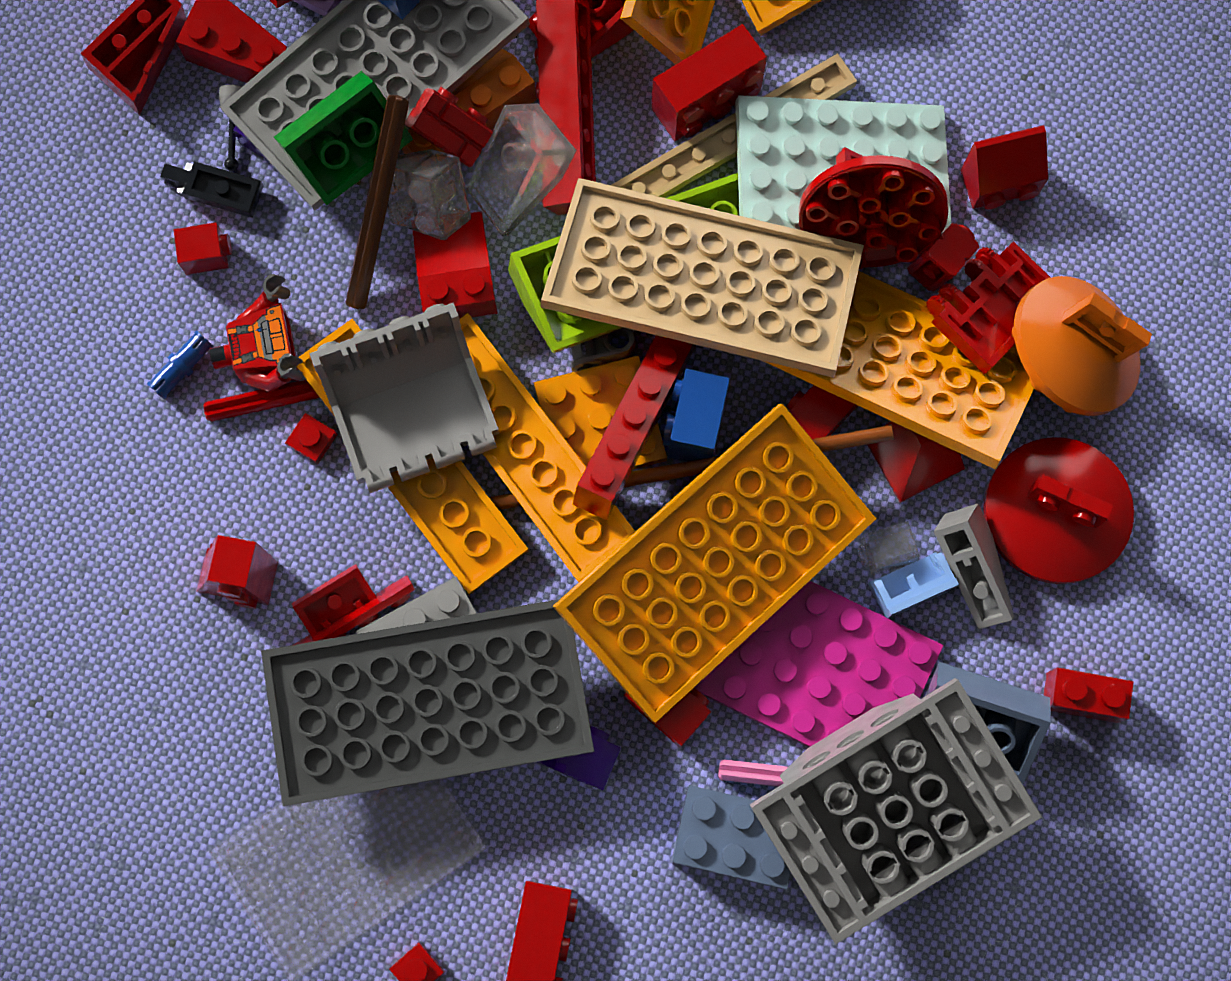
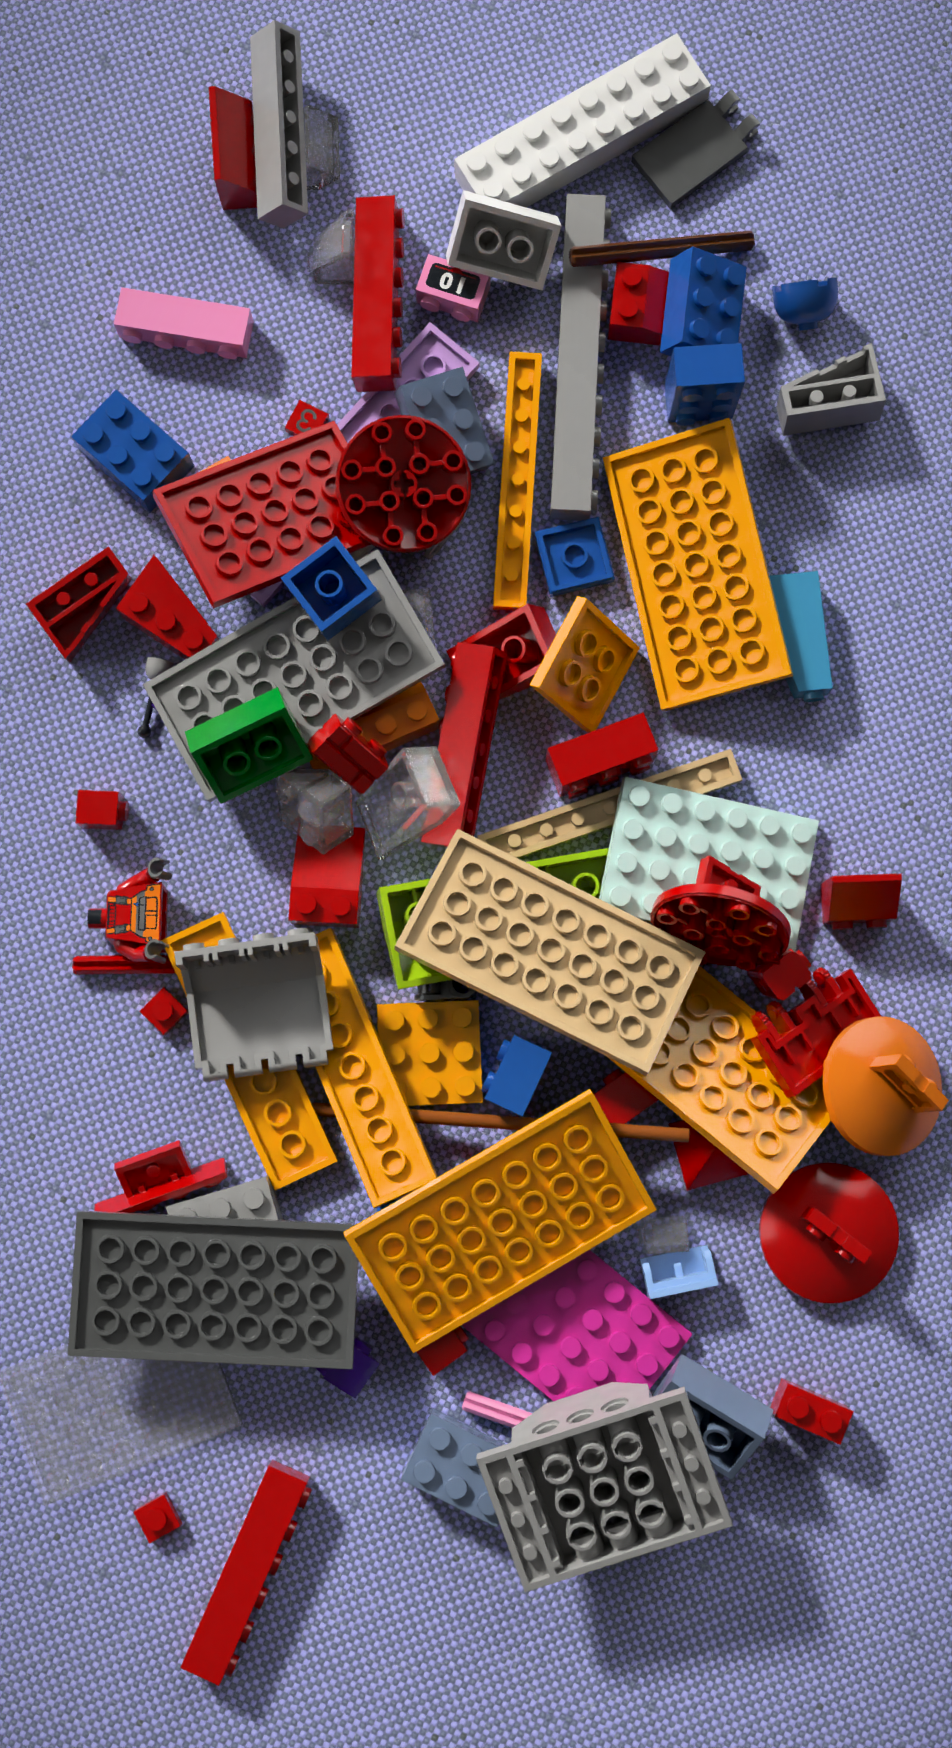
camera: 15 degrees right, 5 degrees up
(180, 364) = (59, 916): blue pin -> none
(214, 187) = (125, 752): black hinge -> none
(238, 572) = (69, 1129): red wedge -> none
(377, 201) = (268, 809): reddish brown axle -> none
(631, 426) = (452, 1077): red brick -> none
(975, 565) = (738, 1266): light grey slope -> none

